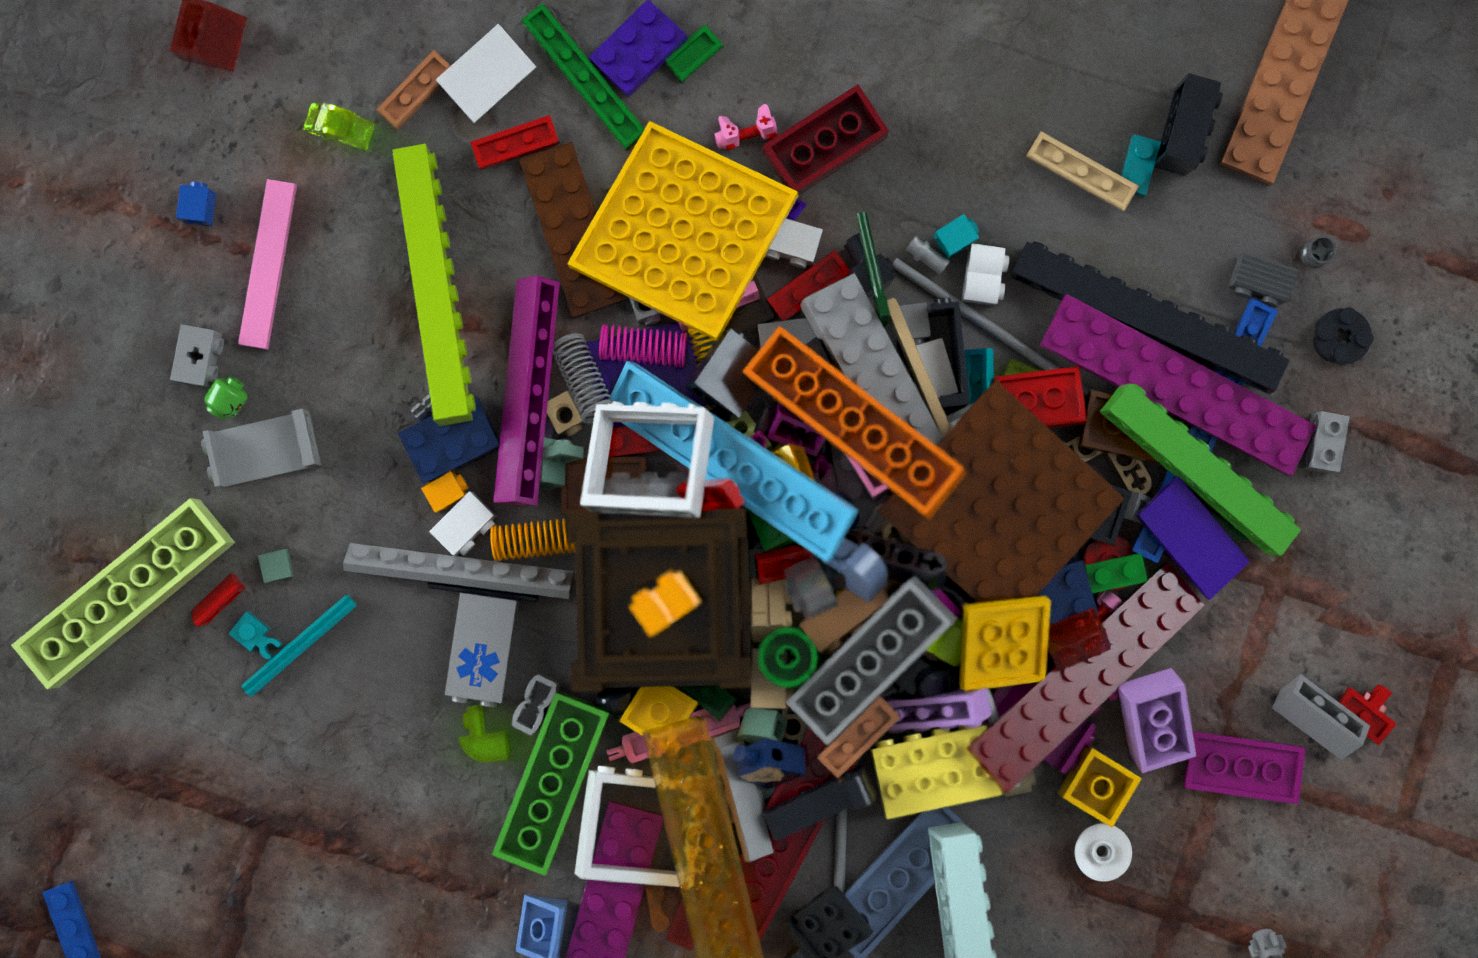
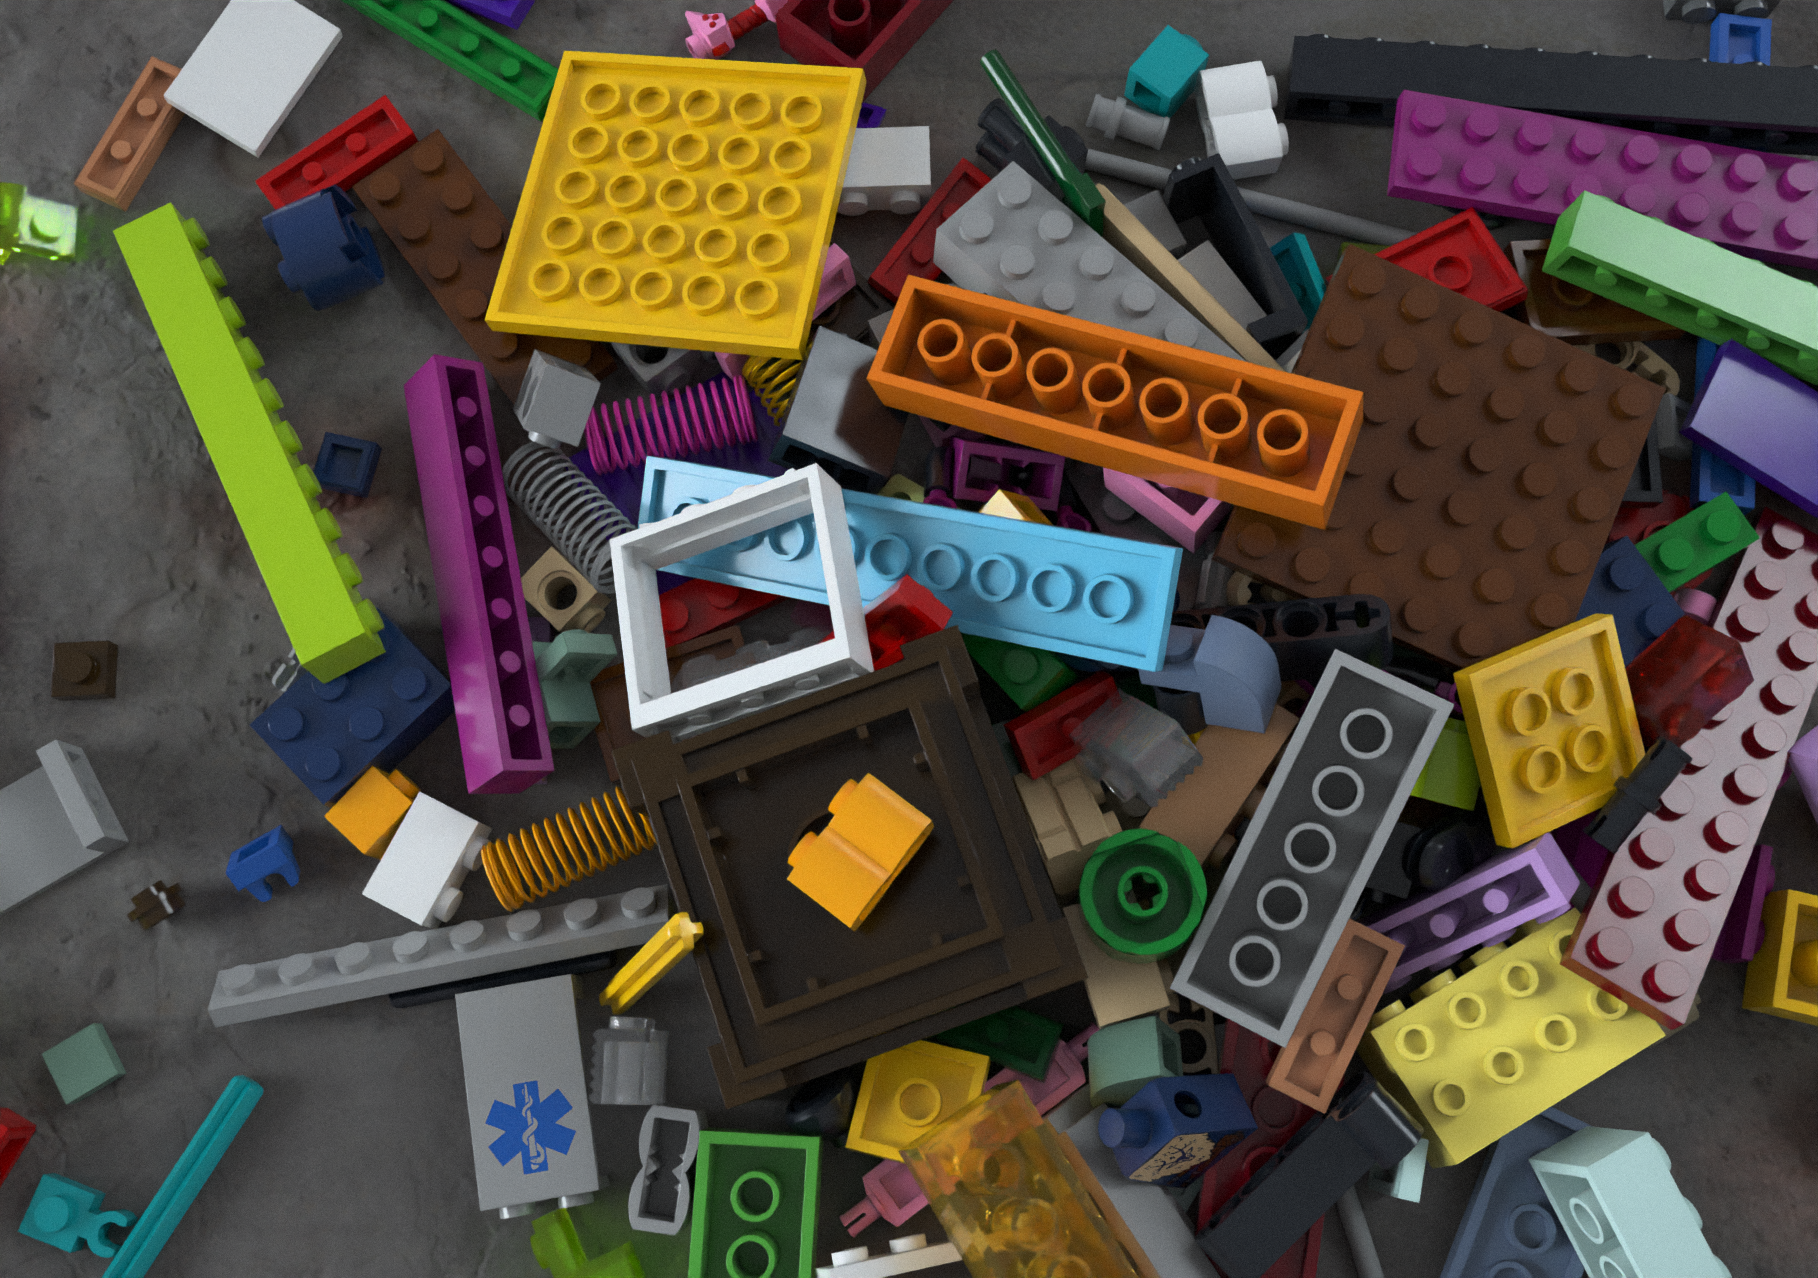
camera: 15 degrees left, 10 degrees down
(320, 373) = (84, 670): none -> dark brown plate
(328, 502) = (156, 904): none -> dark brown plate
(384, 496) = (263, 857): none -> blue tile
(476, 308) = (347, 464): none -> dark blue tile
(497, 194) = (324, 248): none -> dark blue brick
(532, 651) = (630, 1063): none -> clear brick
(555, 613) = (651, 962): none -> yellow axle
(590, 317) = (555, 400): none -> light grey brick
(865, 815) = (1404, 1178): none -> light aqua tile
(1032, 685) = (1637, 794): none -> black pin

